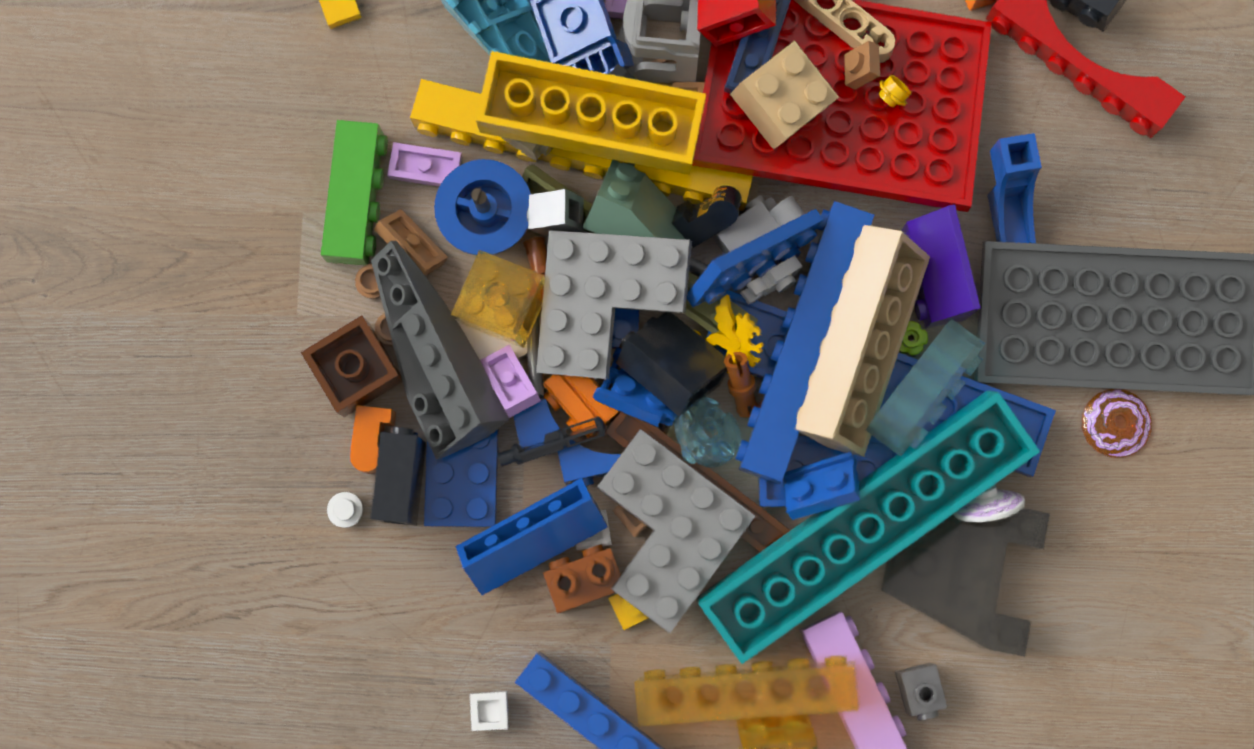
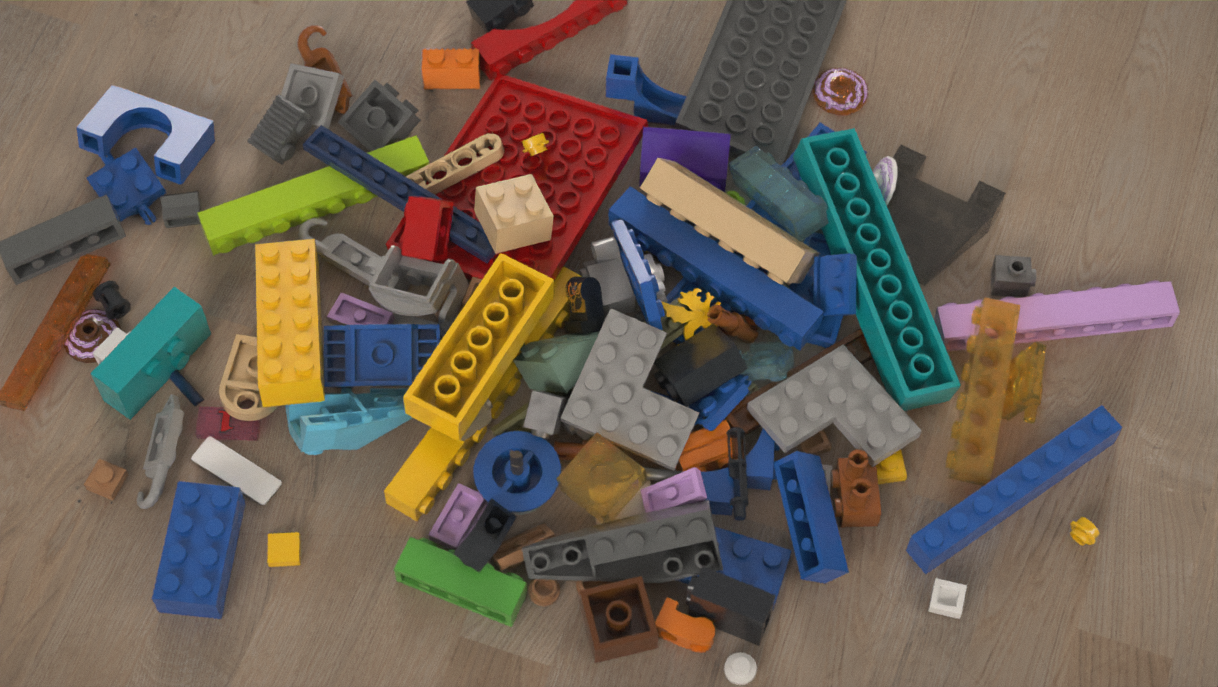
camera: 75 degrees left, 20 degrees down
(395, 198) = (485, 535): none -> black brick
(862, 65) = (505, 159): medium nougat plate -> none

